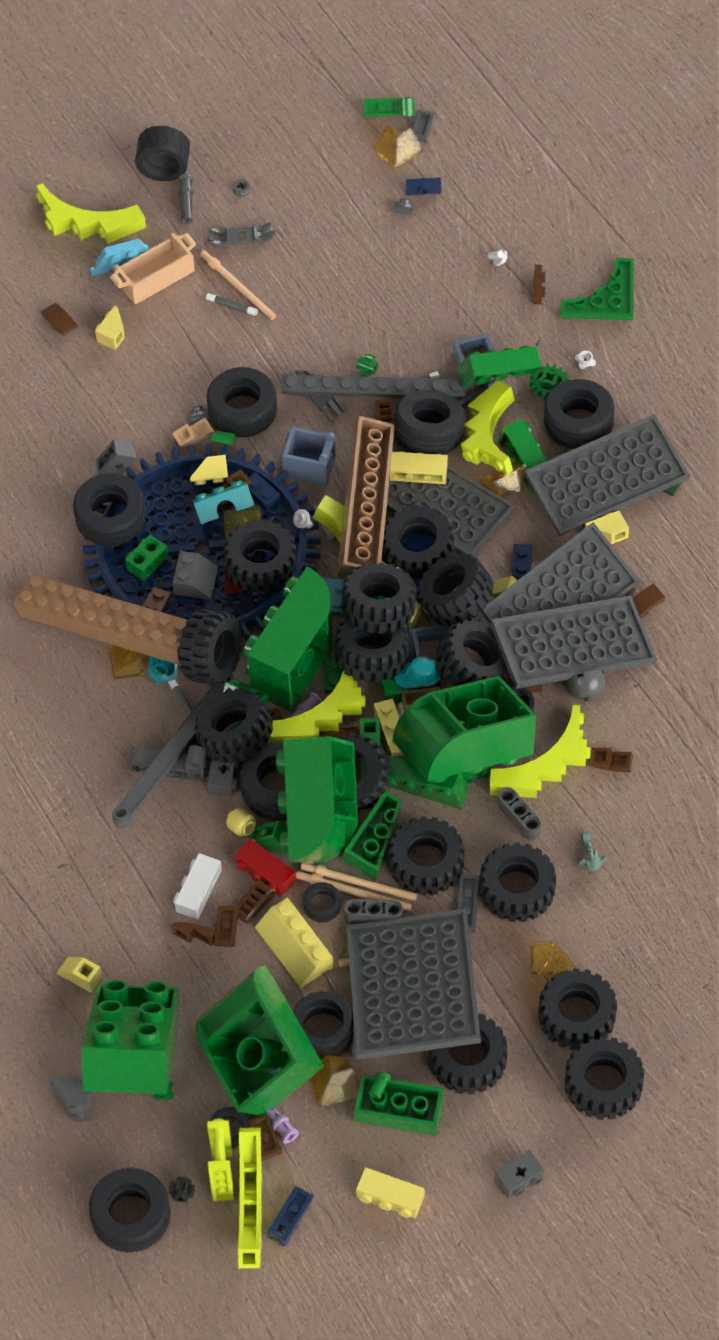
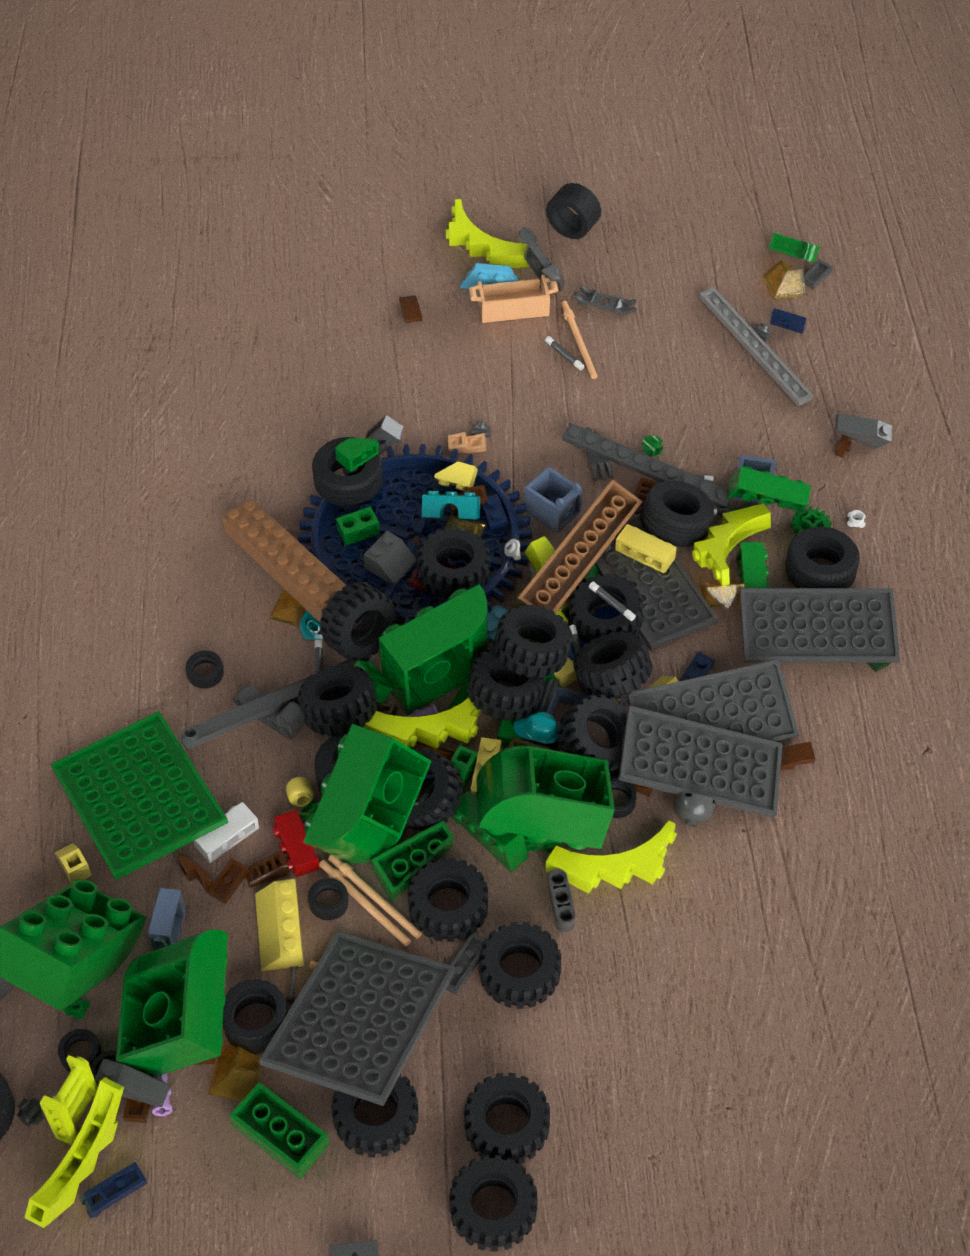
camera: 25 degrees right, 5 degrees down
(80, 739) = (209, 680): none -> black tyre
(101, 888) = (138, 795): none -> green plate
(111, 329) = (448, 333): light yellow slope -> none
(114, 489) = (356, 452): none -> green slope
(157, 599) = (343, 566): reddish brown plate -> none
(159, 221) = (537, 261): none -> dark grey piece
(186, 192) = (579, 251): dark grey pin -> none
(187, 1108) = (73, 1037): none -> black tyre
(198, 982) = (167, 918): none -> sand blue window
(222, 783) = (306, 744): dark grey brick -> none
(224, 438) = (487, 455): green slope -> none
(242, 382) = (525, 415): black tyre -> none
(244, 184) = (629, 261): dark grey bush -> none
(270, 1124) = (135, 1083): none -> dark grey slope
(364, 907) = (365, 922): dark grey beam -> none
(380, 1084) = (266, 1100): green pin -> none
(390, 1193) = (219, 1216): light yellow brick -> none
(406, 224) = (756, 346): none -> light grey plate
(424, 531) = (612, 601): none -> dark grey bar
(499, 257) = (824, 402): white plate -> none
(548, 959) = (508, 1055): clear yellow slope -> none
(552, 270) = (865, 430): none -> dark grey slope
(593, 860) = (605, 978): sand green piece -> none
(608, 302) = (905, 478): green plate -> none
(612, 526) = (798, 675): light yellow slope -> none
(612, 761) = (677, 888): reddish brown slope -> none

